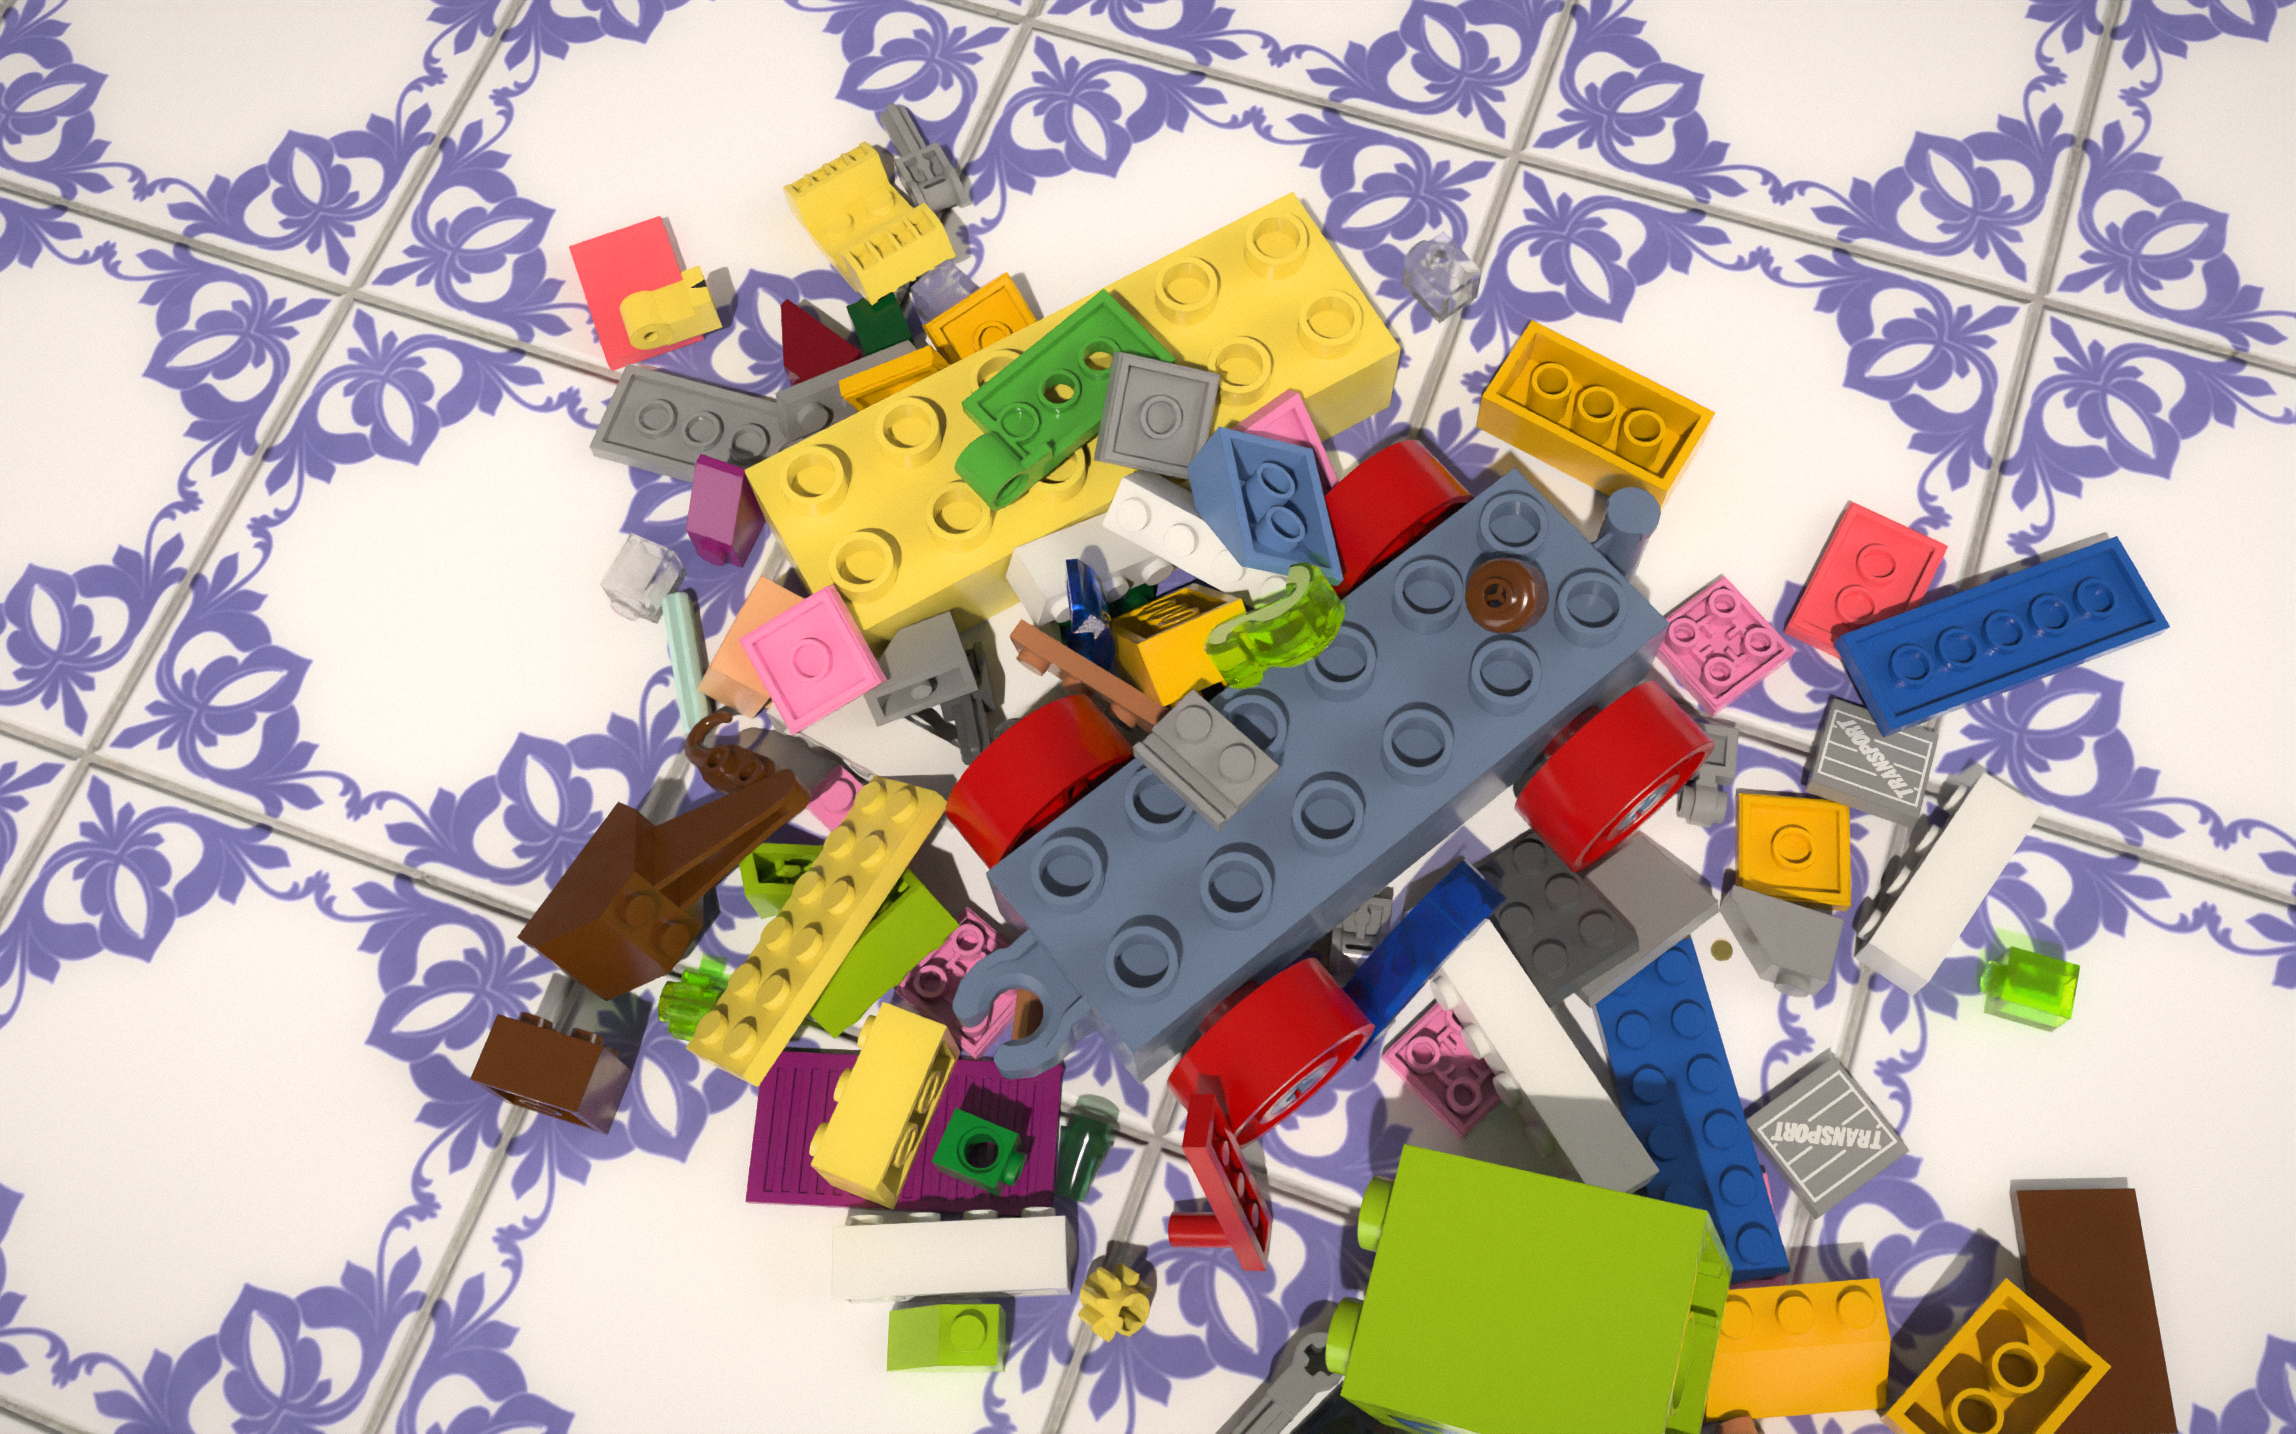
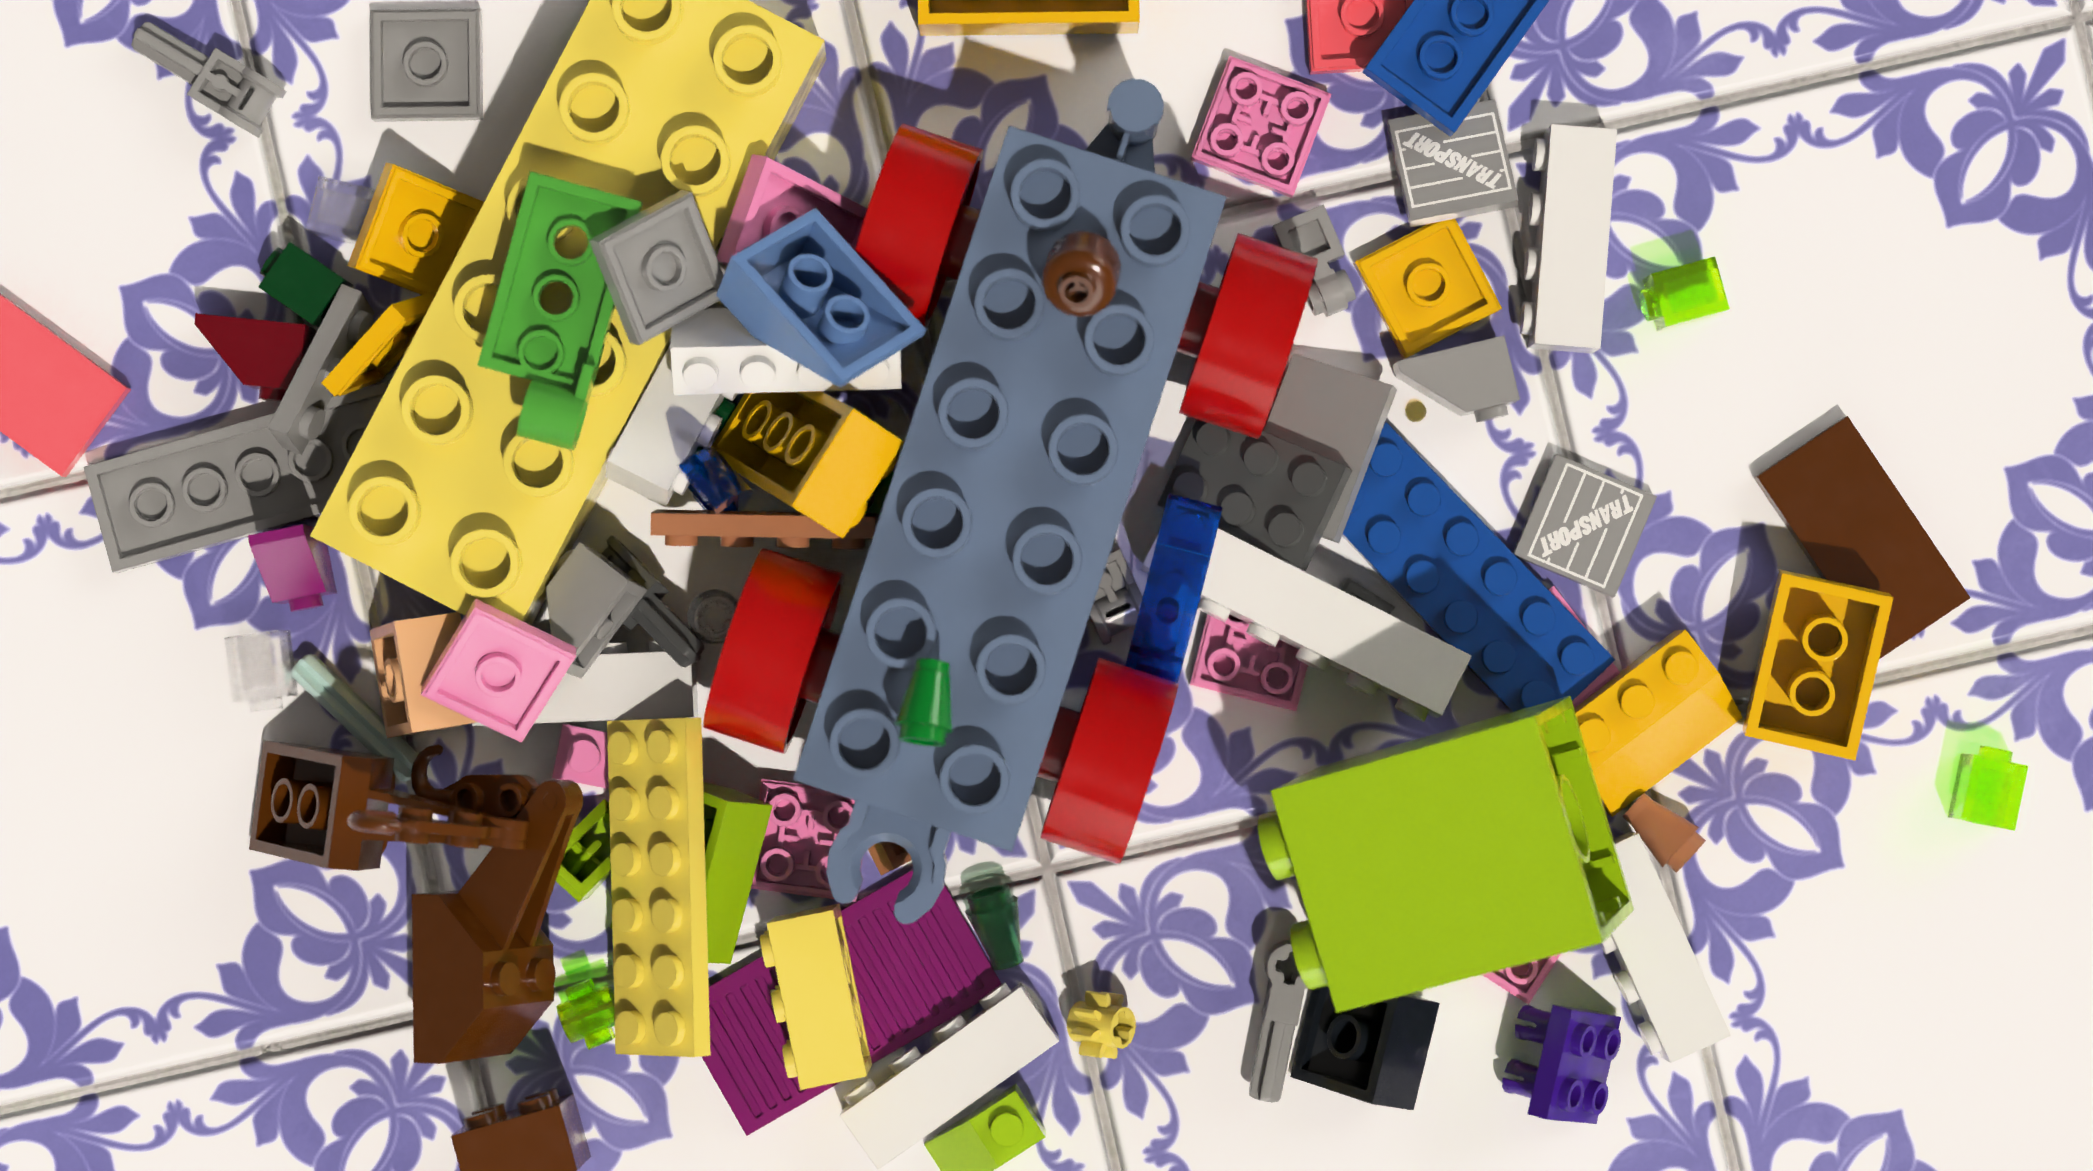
camera: 40 degrees left, 20 degrees up
(618, 704) = (334, 810): none -> reddish brown slope
(670, 312) = (91, 393): light yellow leg -> none
(867, 224) = (214, 183): light yellow plate -> none
(959, 1139) = (896, 994): green brick -> none
(1081, 242) = (426, 65): none -> light grey tile
(1140, 865) = (926, 706): none -> green cone
(1206, 760) = (919, 579): light grey plate -> none
(1240, 1212) = (1140, 892): red piece -> none
(1279, 632) = (913, 427): clear neon green animal -> none

